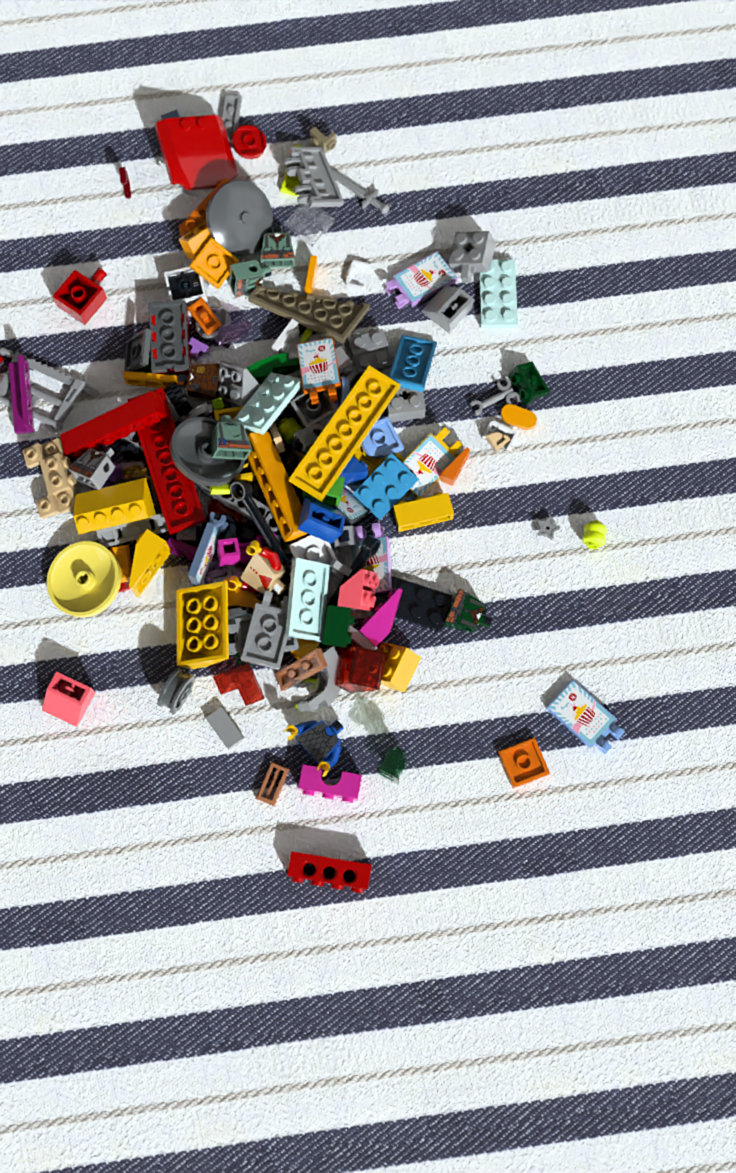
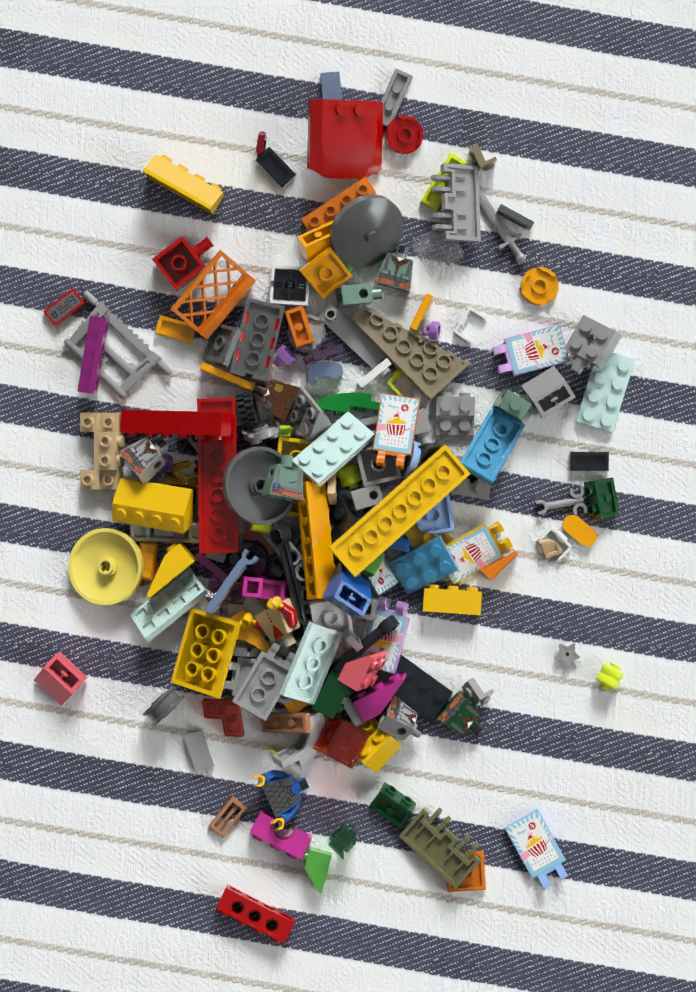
camera: 10 degrees right, 15 degrees up
(64, 233) = (183, 183): none -> yellow slope
(92, 355) = (175, 329): none -> light orange tile
(131, 320) = (222, 307): none -> orange fence
(144, 199) = (275, 167): none -> black tile
(154, 595) = (169, 604): none -> light aqua plate
(239, 349) = (321, 370): none -> sand blue leg
(254, 314) = (351, 335): none -> light grey piece
(327, 287) = (434, 330): none -> medium lavender tile
(368, 177) = (515, 217): none -> dark grey tile
(376, 802) = (317, 866): none -> bright green slope
(409, 227) = (539, 286): none -> light orange tile
(410, 633) = (399, 720): none -> light grey torso
(421, 325) = (513, 405): none -> sand green torso
(431, 720) = (392, 805): none -> dark green bracket
(475, 587) = (475, 694): none -> light grey bracket
(490, 745) = (439, 848): none -> olive hinge
(505, 356) = (589, 461): none -> black tile

